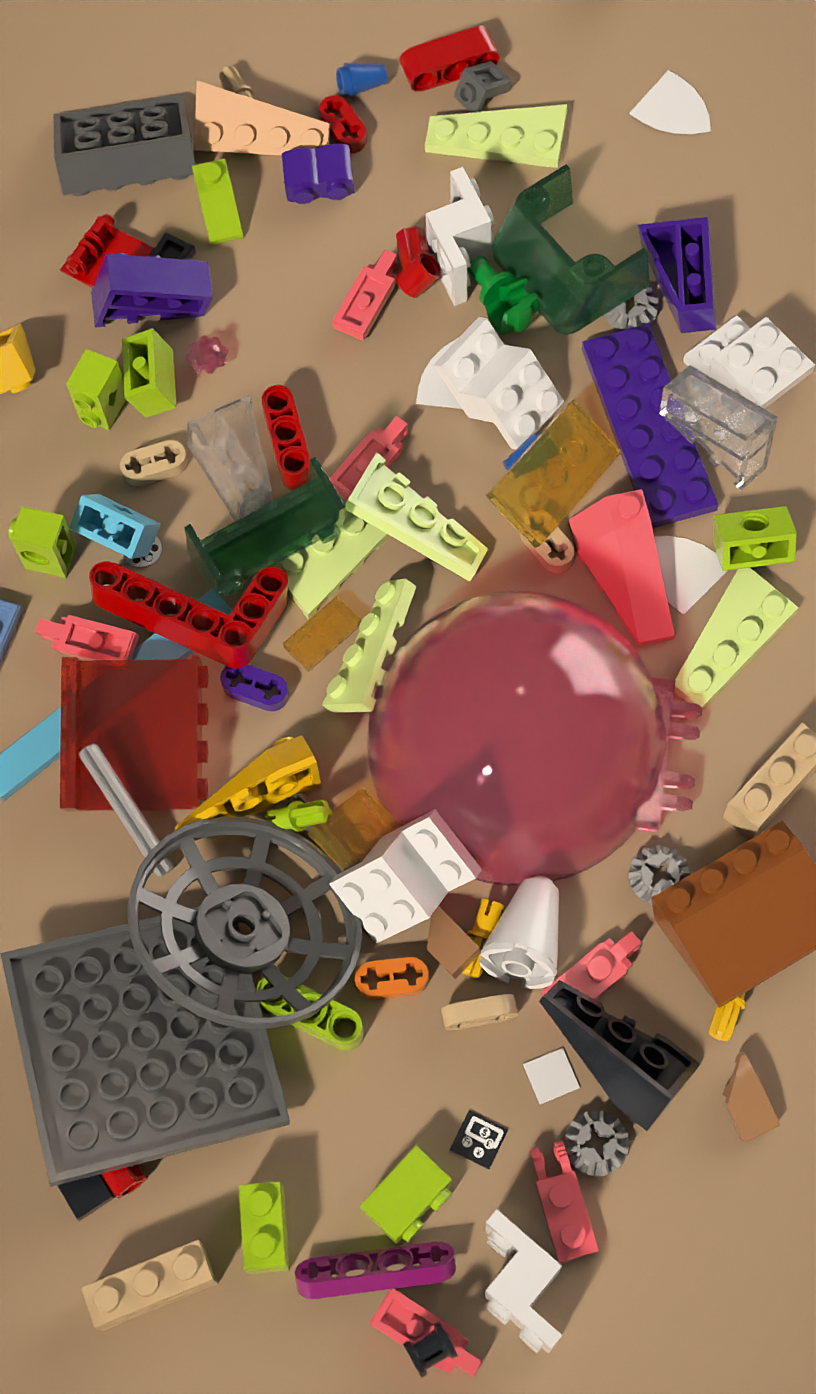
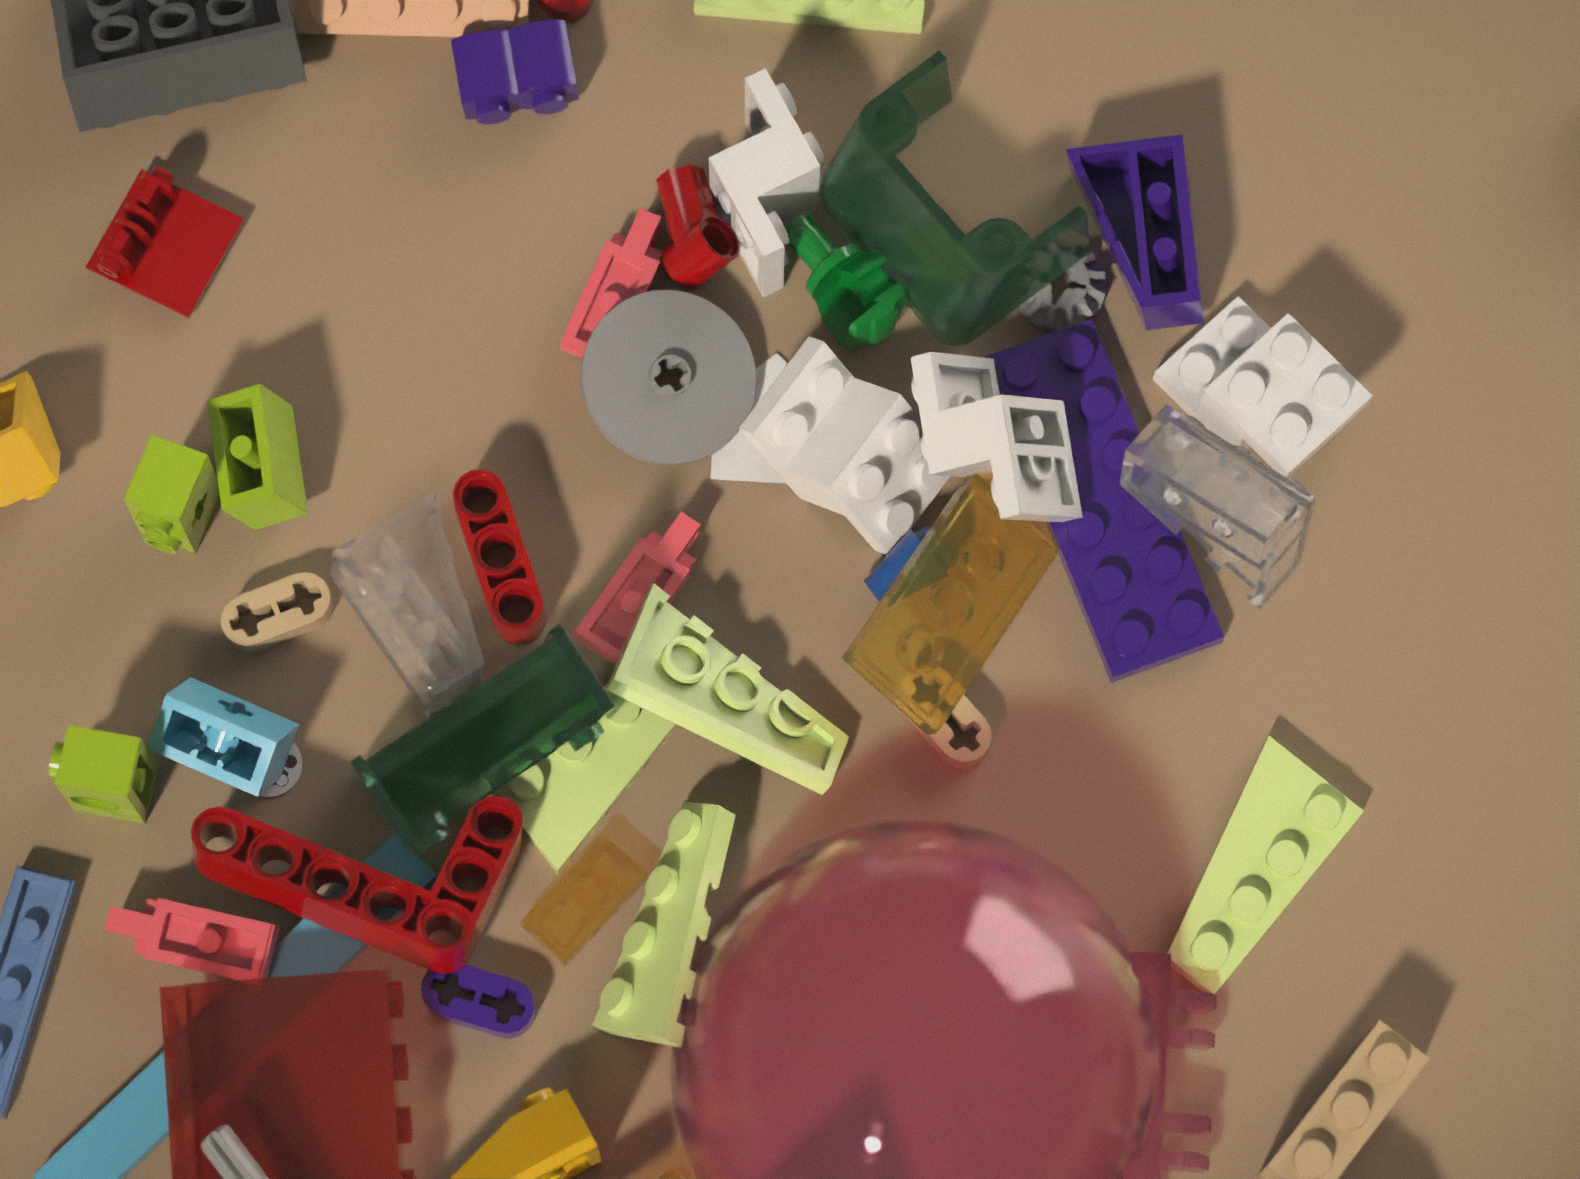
camera: 10 degrees left, 5 degrees up
(150, 287) = (247, 298): dark purple wedge -> none
(173, 248) = (275, 229): black tile -> none
(207, 354) = (351, 412): clear pink plant -> none
(217, 201) = (347, 132): lime slope -> none
(386, 367) = (681, 334): none -> light grey piece
(588, 376) = (999, 437): none -> white bracket
(621, 552) = (1071, 736): coral wedge -> none
(686, 570) = (1171, 750): white sticker -> none
(754, 538) = (1287, 697): lime brick -> none

